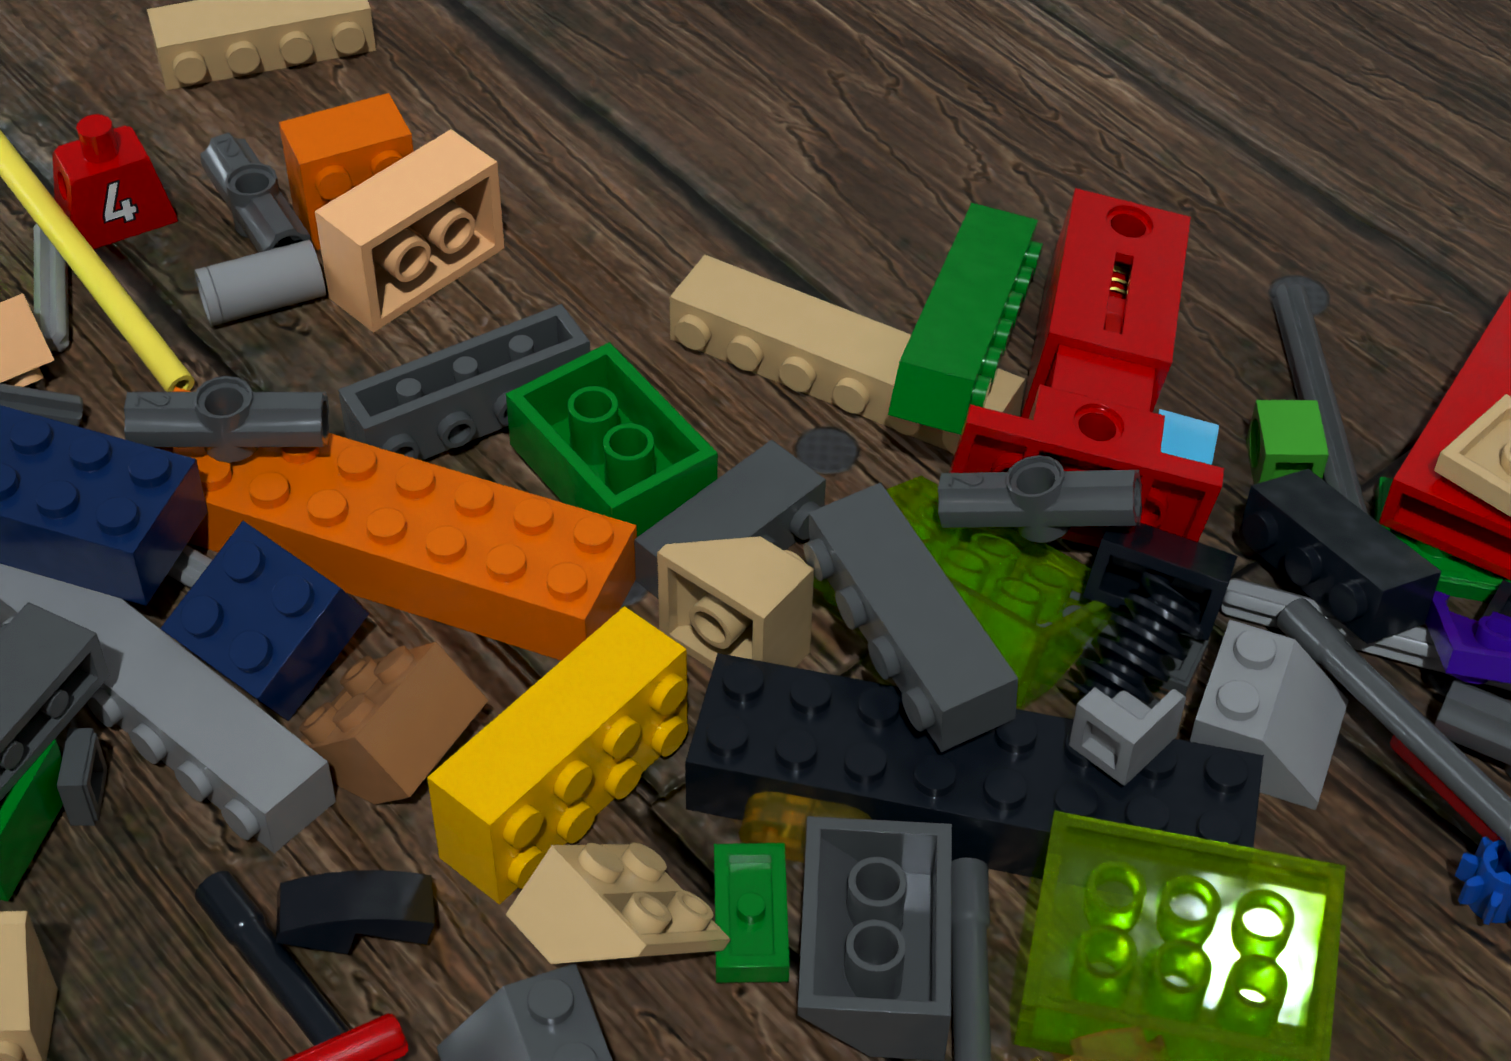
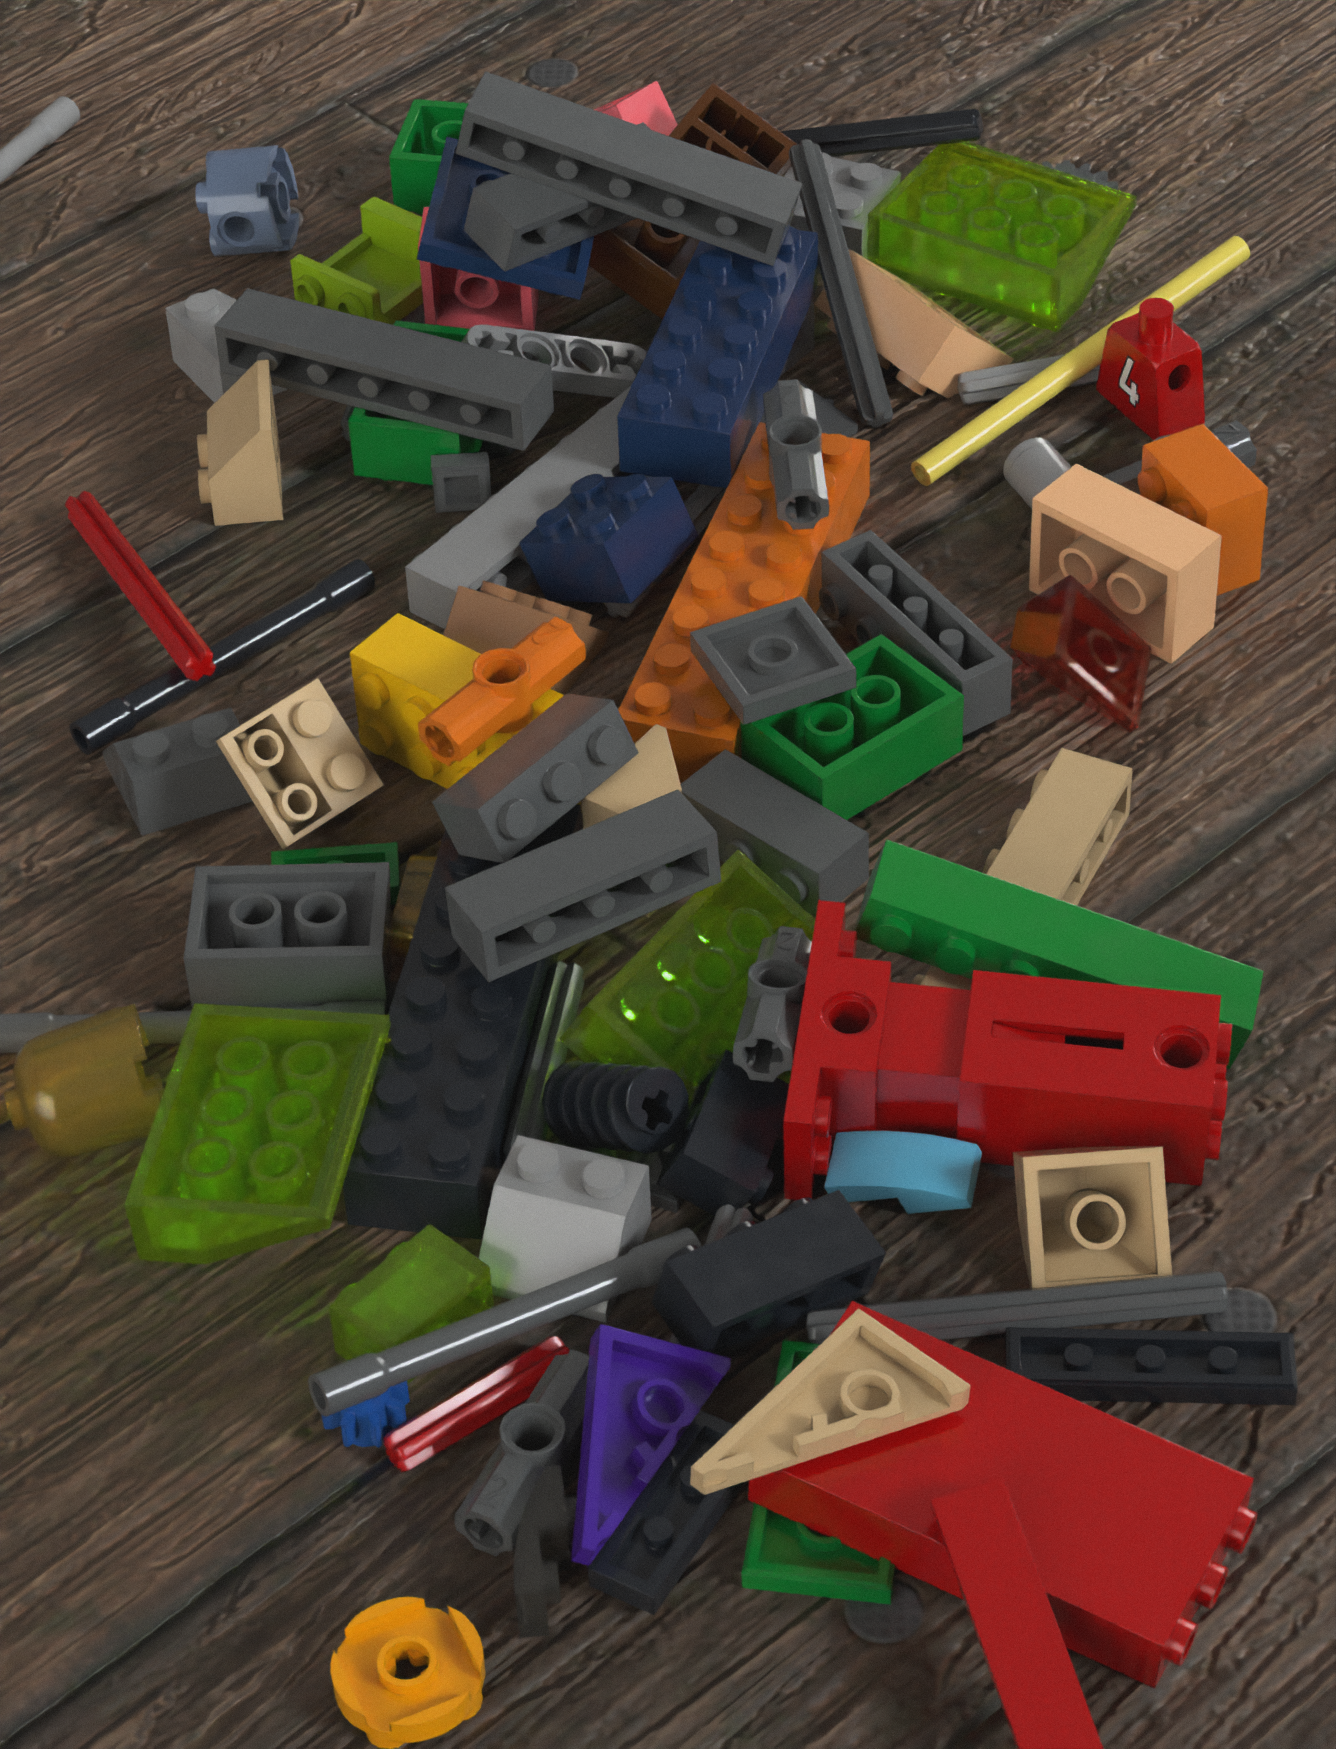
camera: 90 degrees right, 5 degrees down
(334, 906) = (327, 636): black slope -> none
(499, 290) = (1084, 651): none -> clear red slope
(558, 462) = (773, 660): none -> dark grey plate
(624, 659) = (502, 691): none -> orange piece
(750, 642) = (535, 777): none -> dark grey brick
(1123, 731) = (465, 1054): light grey panel -> none
(1226, 351) = (1092, 1214): none -> tan slope
(1286, 439) = (949, 1255): bright green brick -> none
(1367, 349) = (1157, 1364): none -> black tile
(1391, 843) = (409, 1295): none -> clear neon green brick

